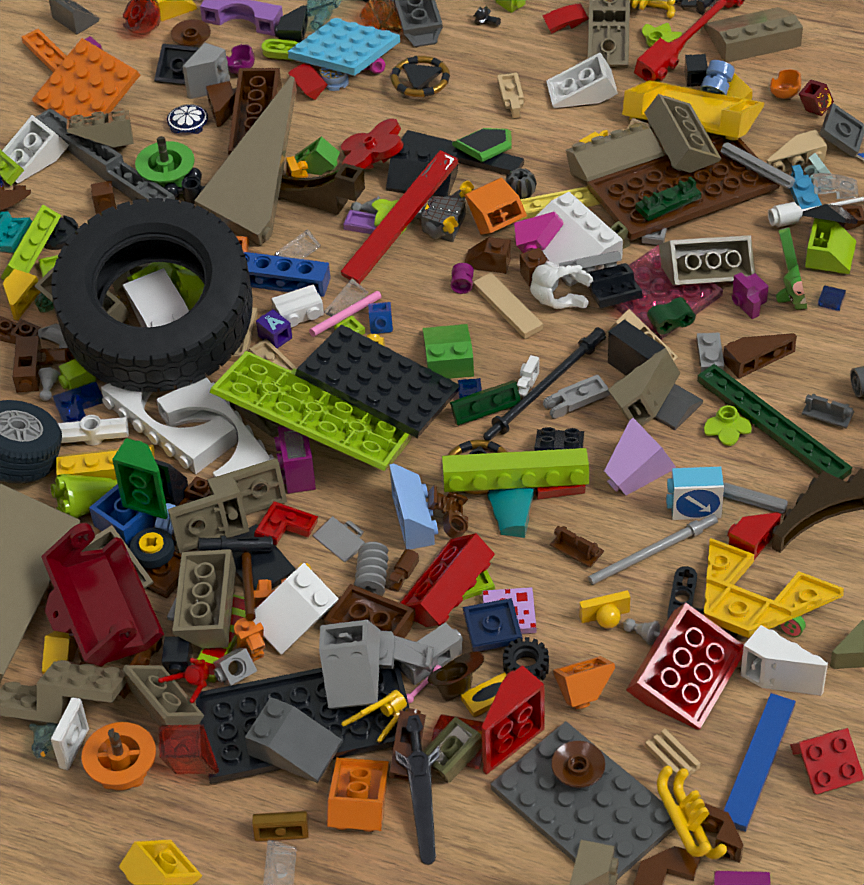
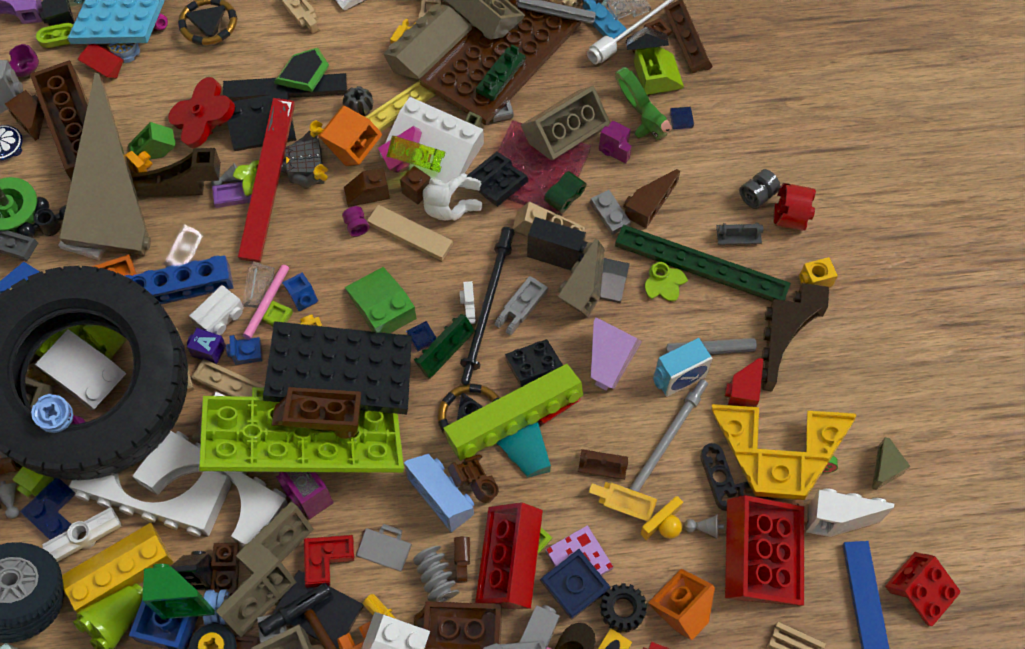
camera: 30 degrees left, 15 degrees up
(115, 304) = (52, 413): none -> light blue wheel
(302, 345) = (244, 350): none -> blue bracket
(341, 396) = (320, 410): none -> reddish brown slope
(545, 236) = (415, 153): none -> clear neon green plate
(577, 579) = (625, 500): none -> yellow hinge
(588, 263) = (467, 163): light grey hinge -> none

